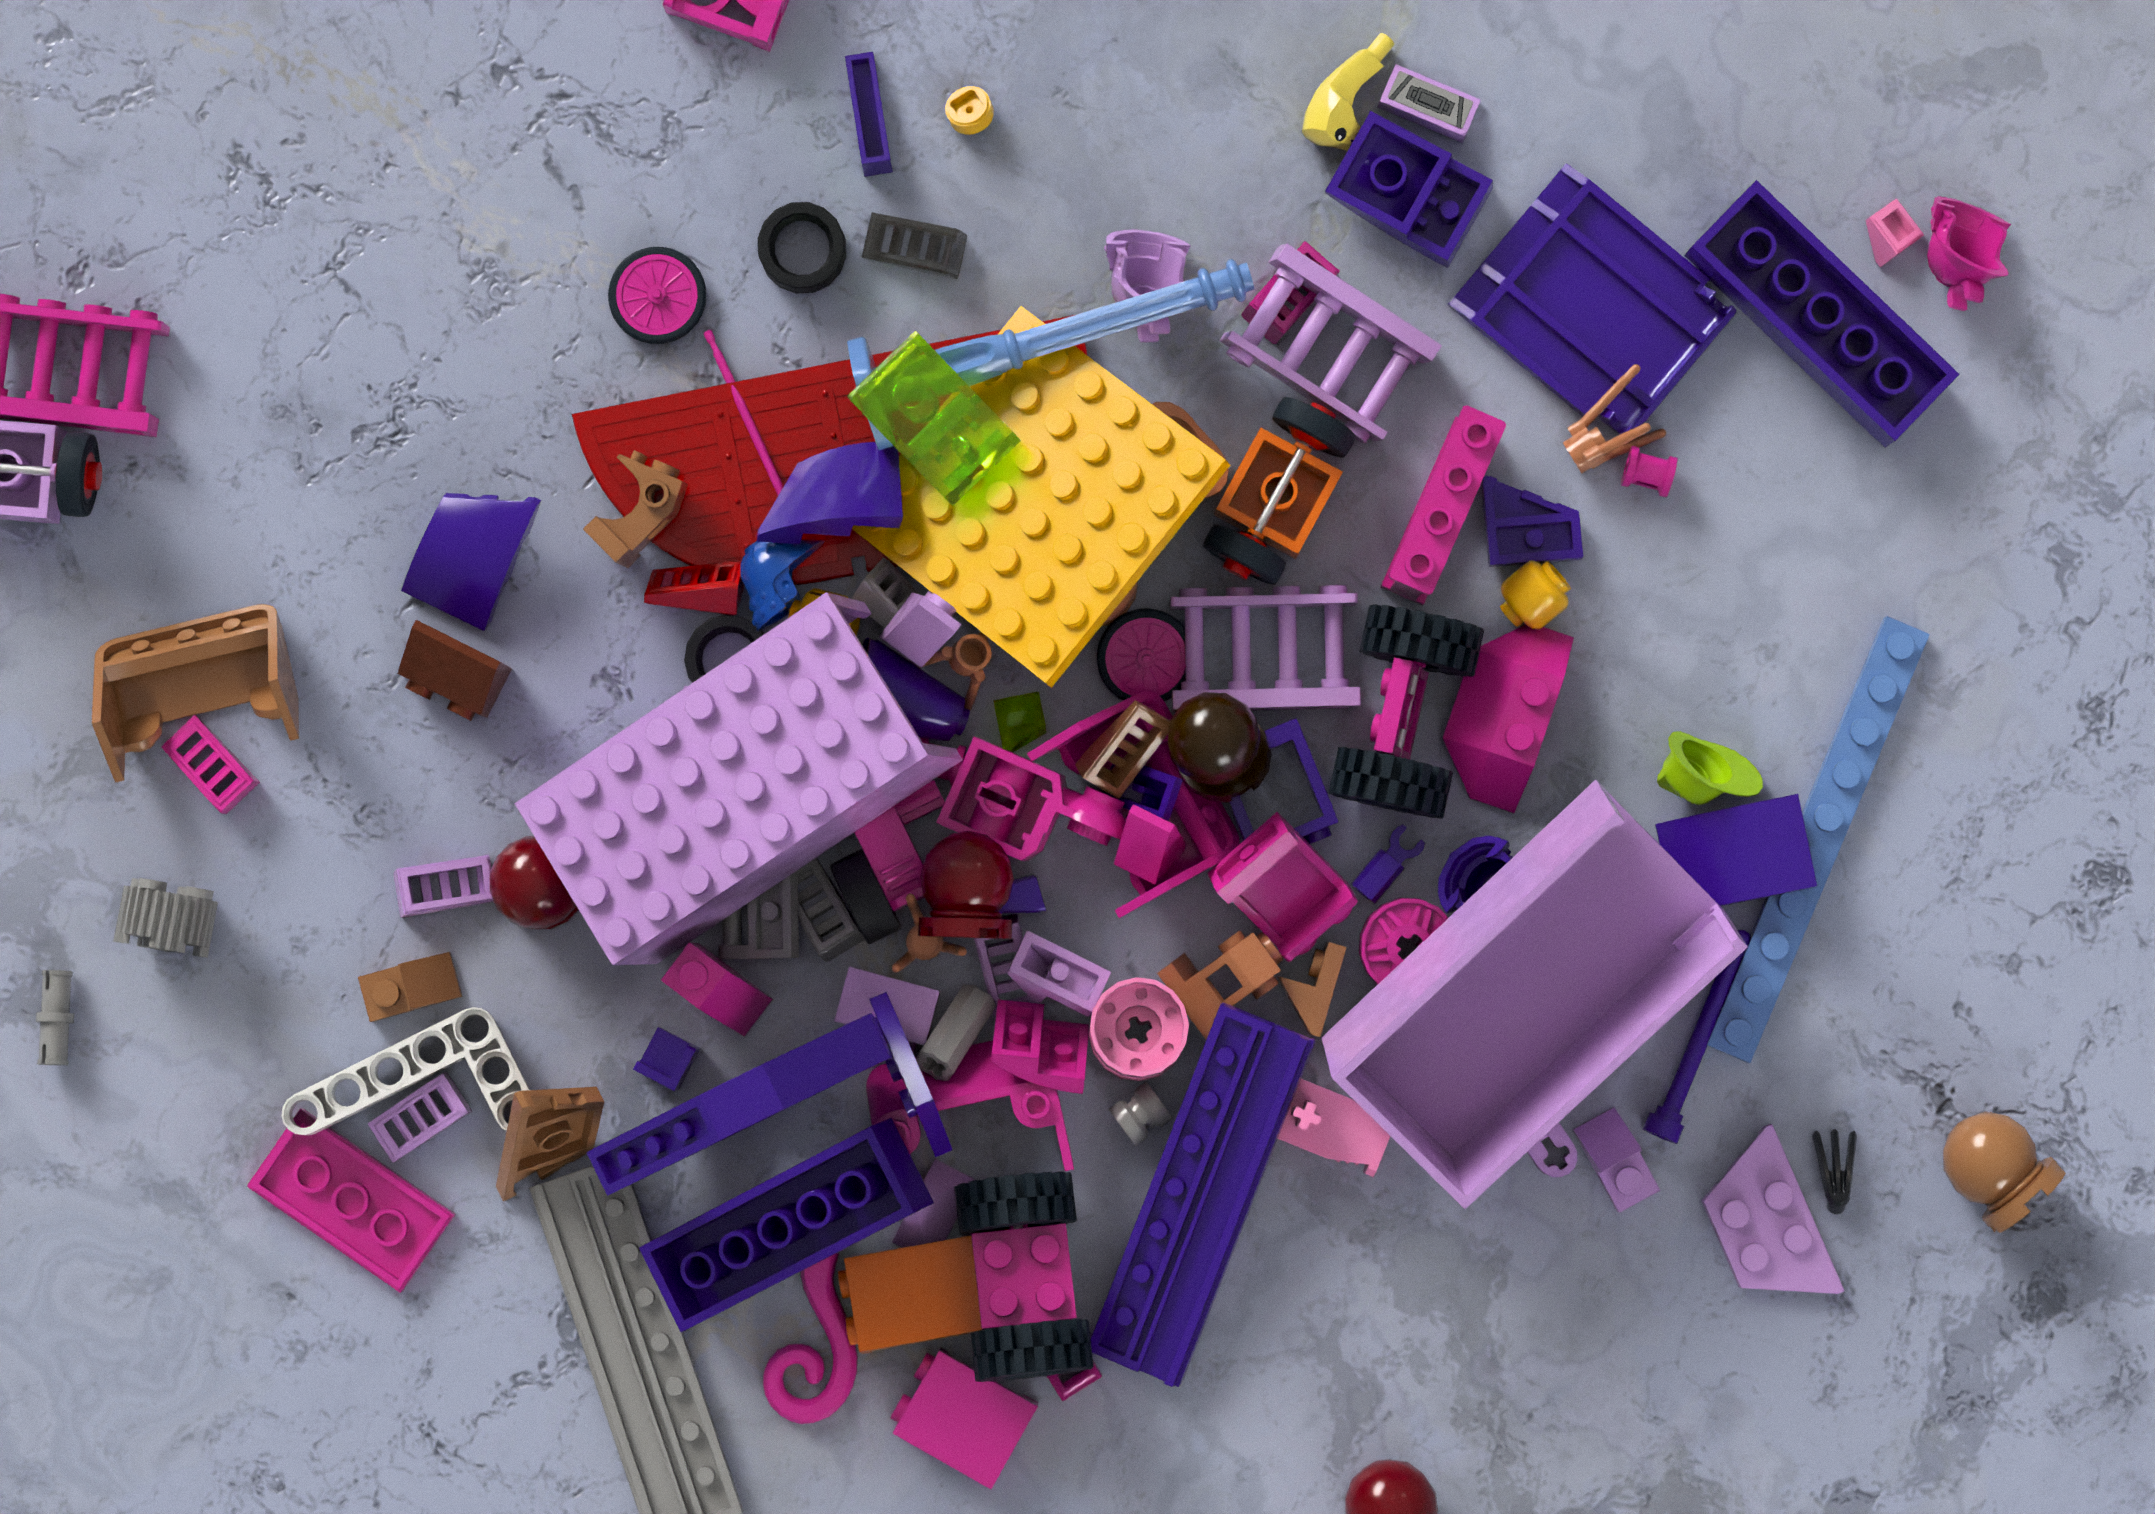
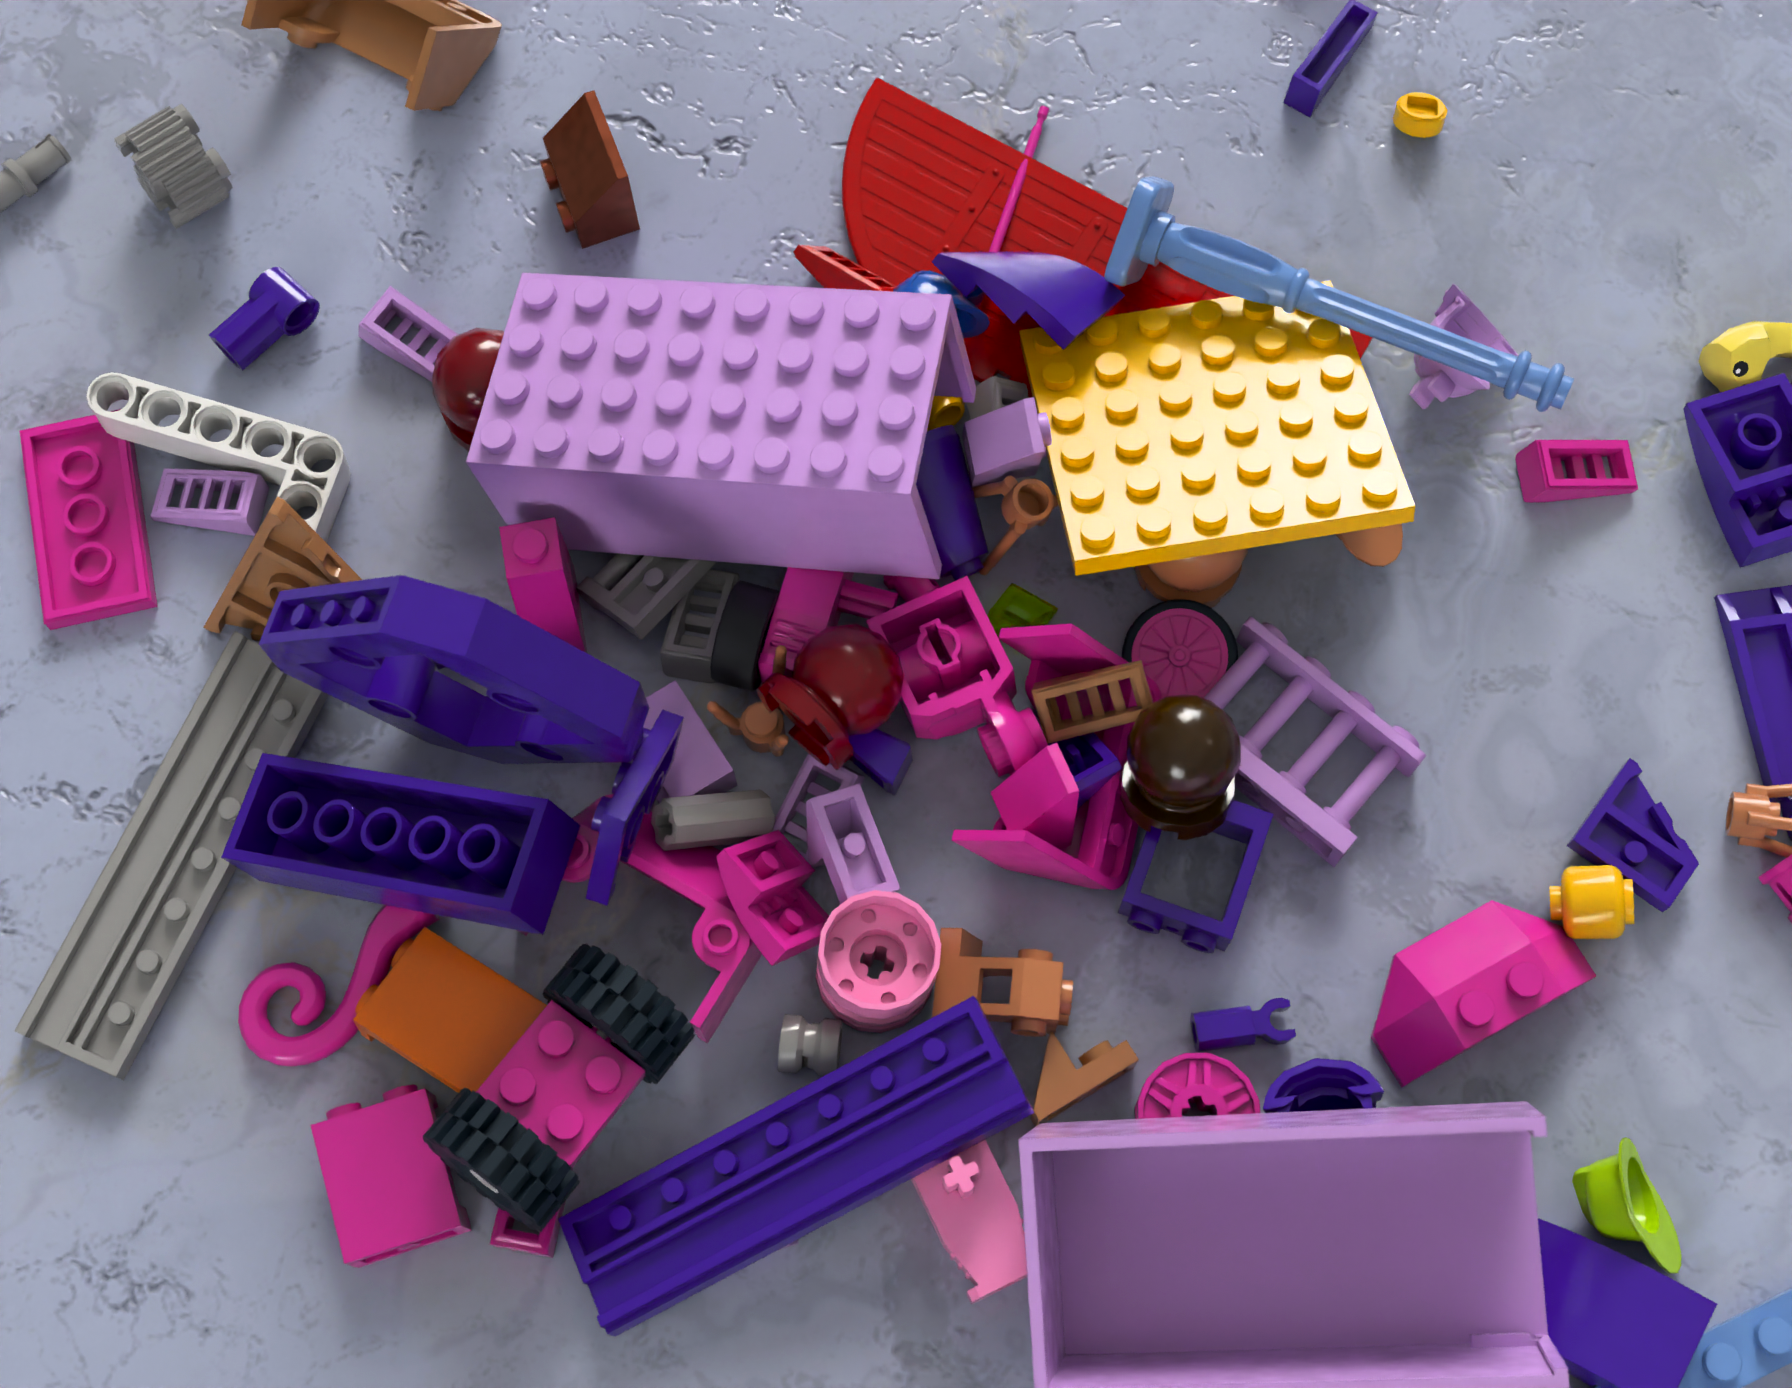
camera: 45 degrees right, 15 degrees down
(236, 791) = (334, 132): dark pink slope -> none
(330, 950) = (274, 308): none -> dark purple piece
(410, 986) = (310, 392): medium nougat slope -> none
(469, 554) = (690, 108): dark purple slope -> none
(629, 535) = (856, 187): medium nougat tile -> none
(657, 295) = (1030, 49): dark pink wheel -> none
(802, 212) = (1188, 71): black tyre -> none
(934, 418) = (1178, 274): clear neon green slope -> none
(936, 1220) = (536, 958): lavender slope -> none
(952, 253) = (1296, 206): clear smoke slope -> none
(1278, 491) = (1432, 608): brick -> none
(1283, 887) = (1128, 953): dark pink panel -> none
(1369, 323) = (1621, 491): lavender fence -> none
(1414, 645) = (1437, 844): black plate -> none
(1443, 505) = (1576, 741): dark pink fence -> none

